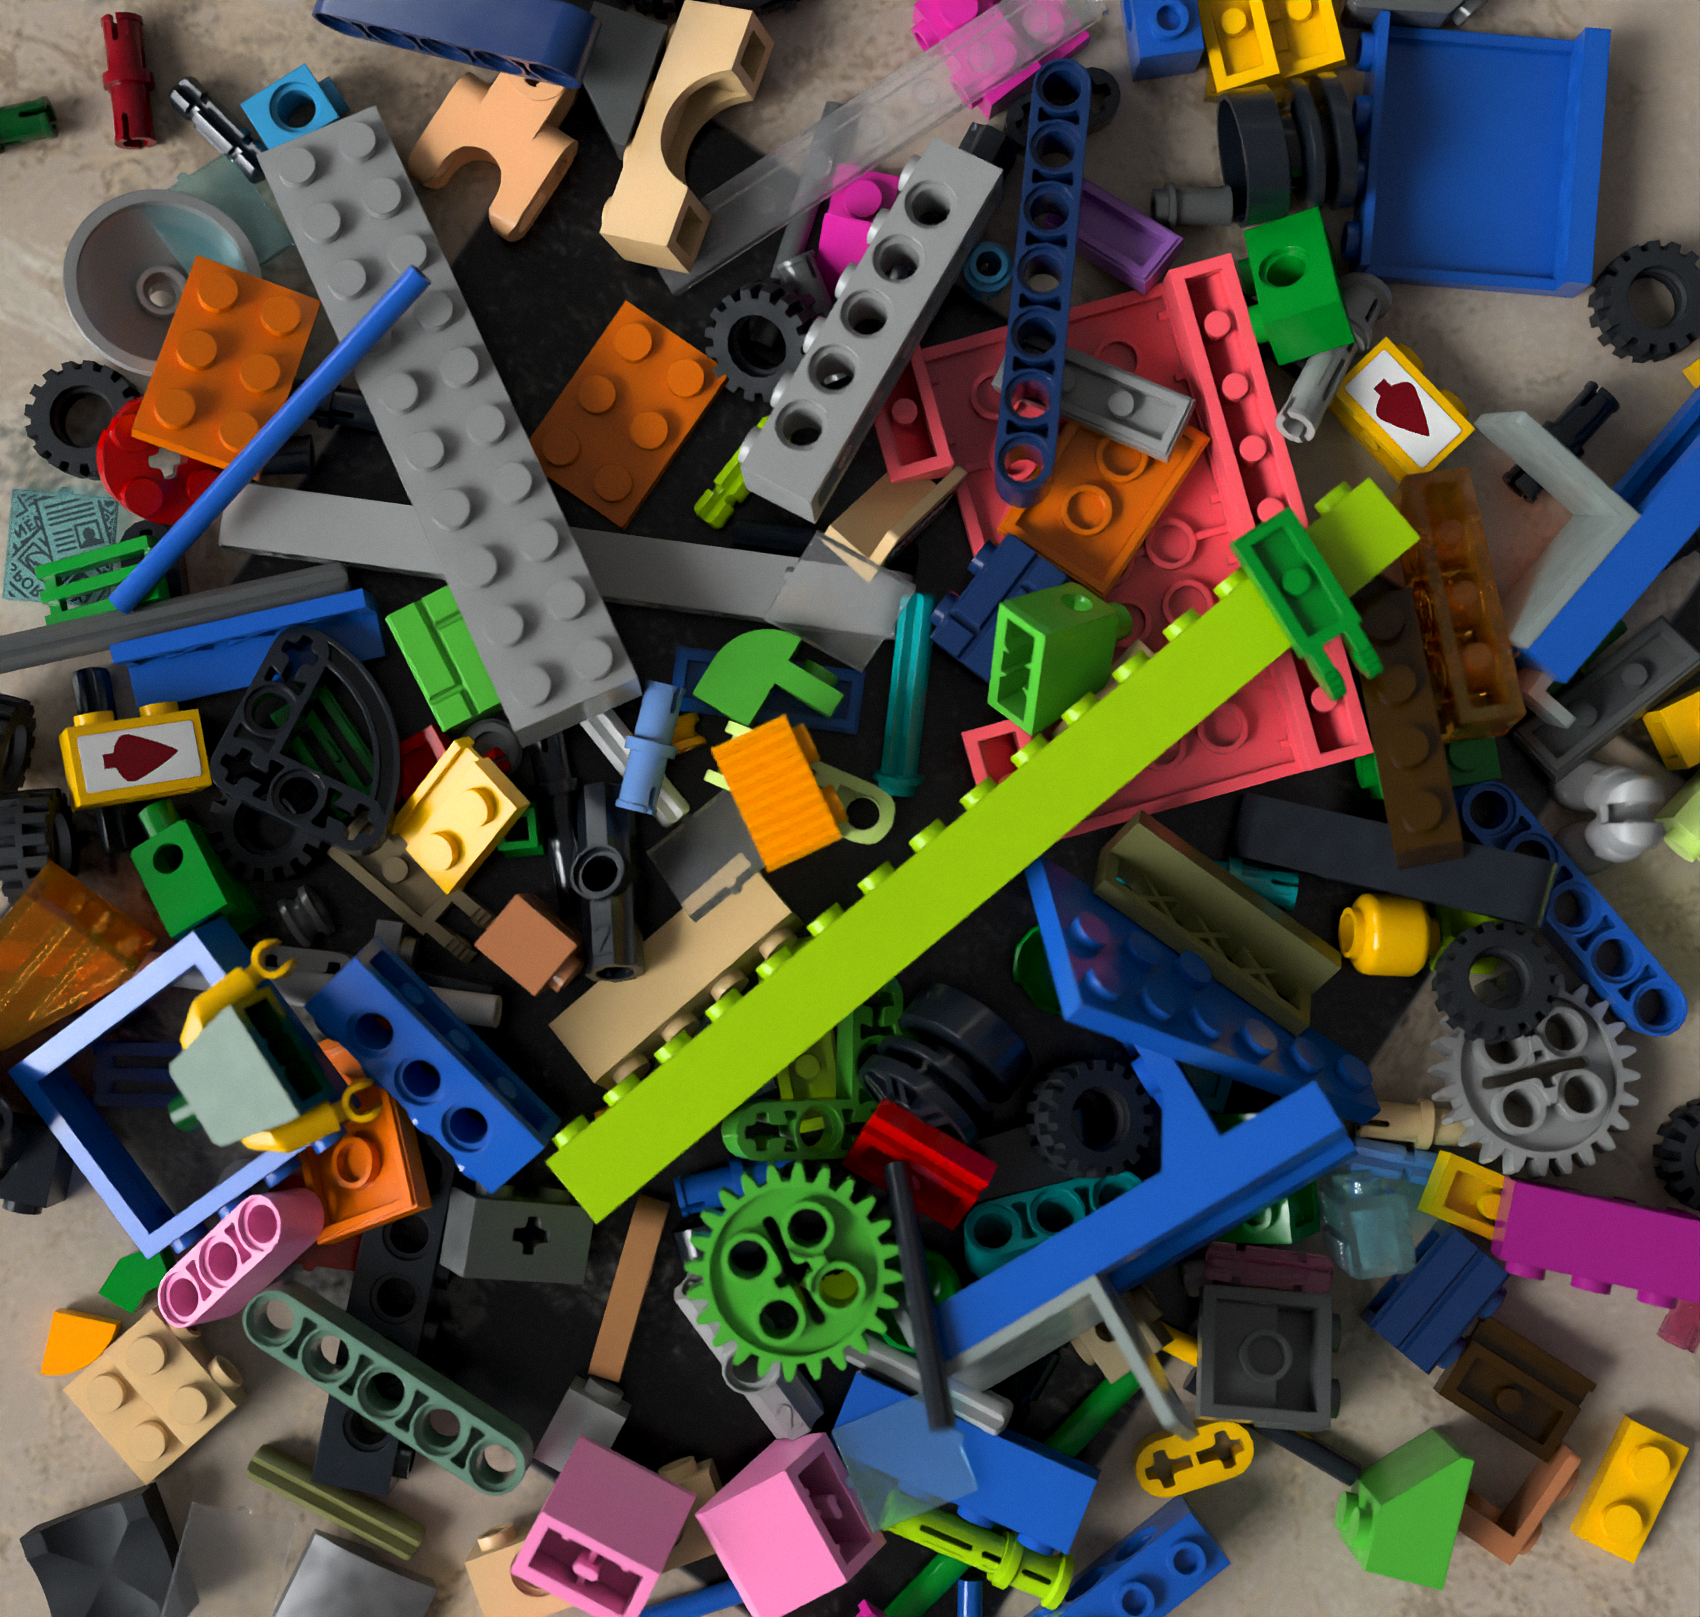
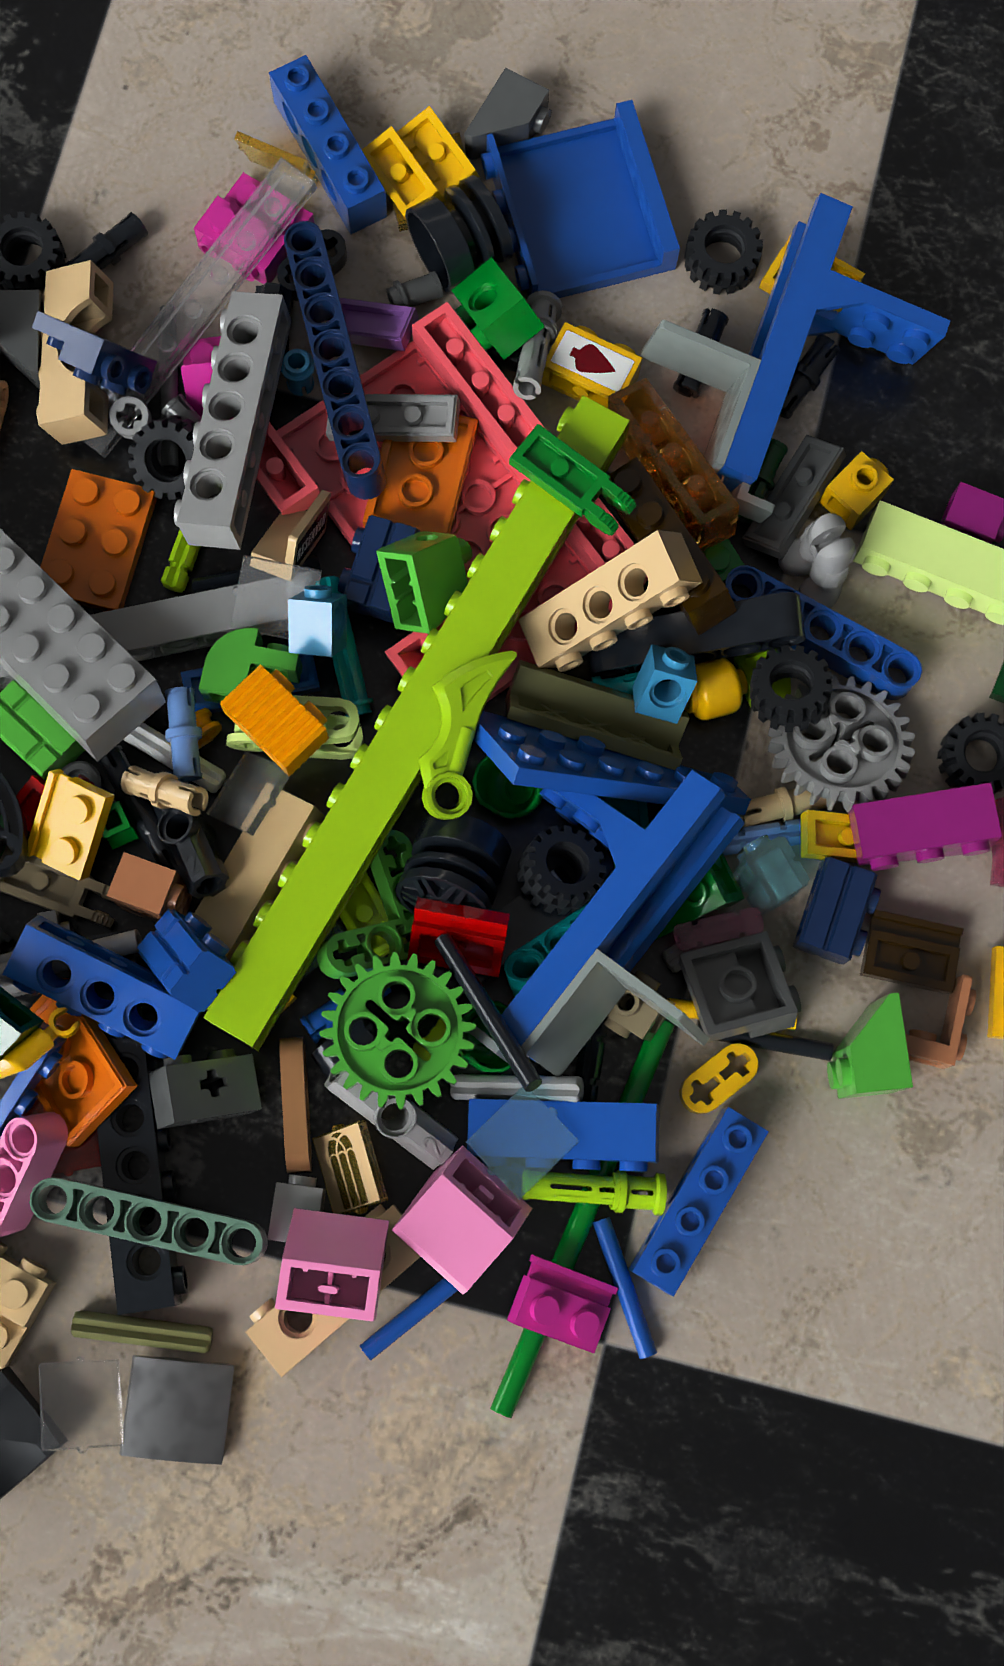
camera: 30 degrees left, 10 degrees down
(551, 1071) = (187, 958): none -> blue brick
(599, 821) = (164, 790): none -> tan pin
(670, 1401) = (350, 1168): none -> piece
(713, 163) = (97, 356): none -> dark blue plate
(723, 242) = (121, 407): none -> light grey bush
(884, 662) = (317, 621): none -> brick
(1038, 861) = (461, 702): none -> lime piece
(1325, 917) = (667, 698): none -> dark azure brick
(1388, 774) = (670, 576): none -> tan brick

